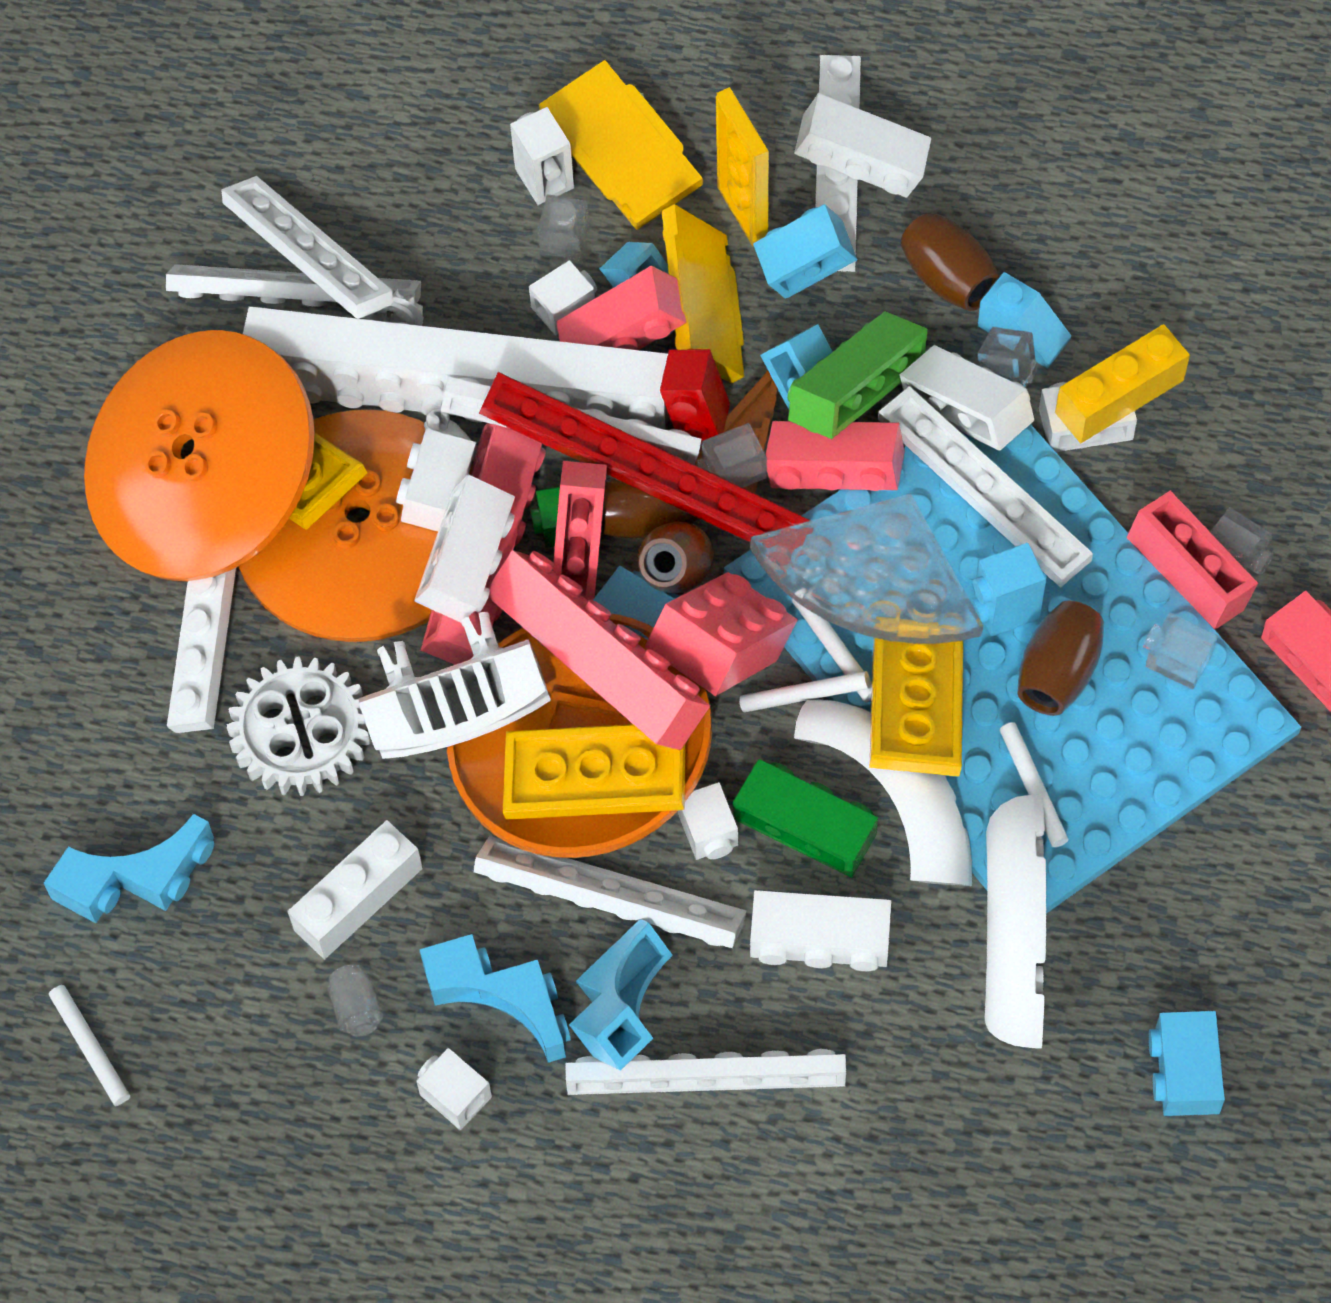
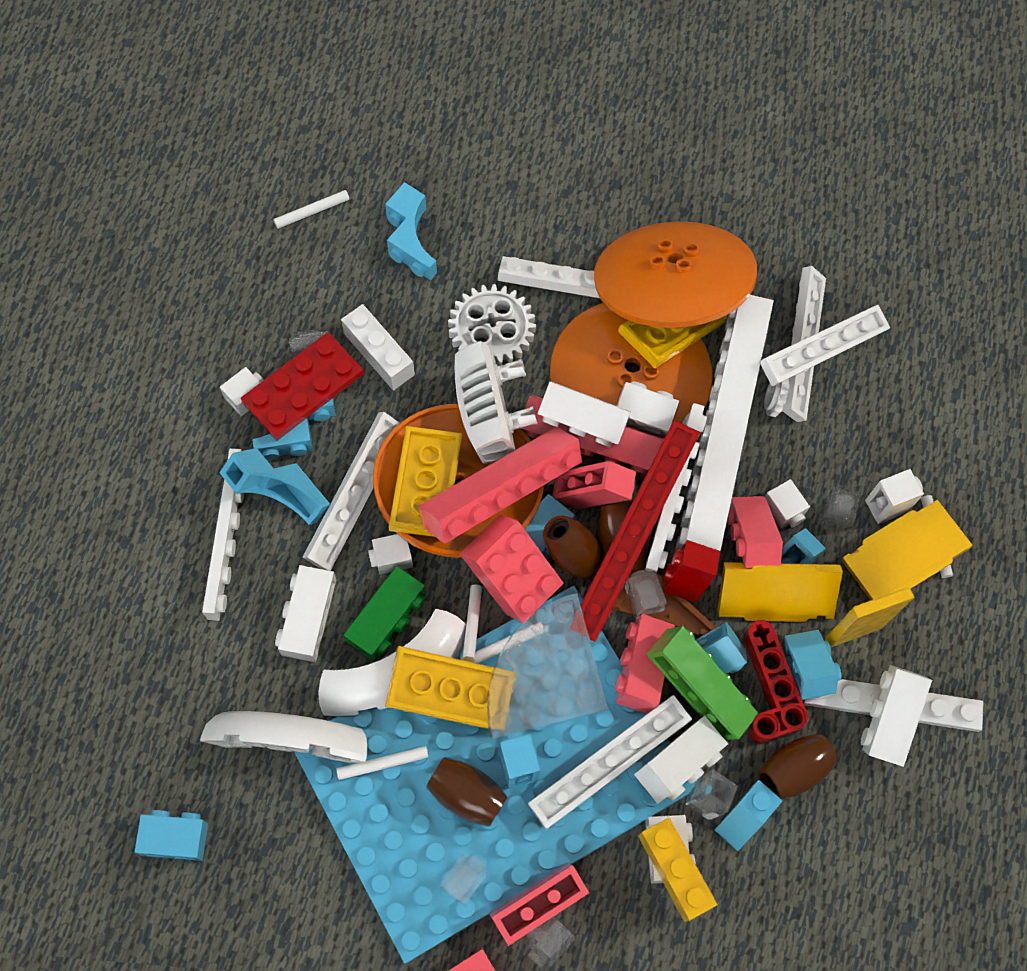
camera: 90 degrees right, 5 degrees up
(446, 981) = (302, 386): none -> red plate
(780, 314) = (768, 679): none -> red beam

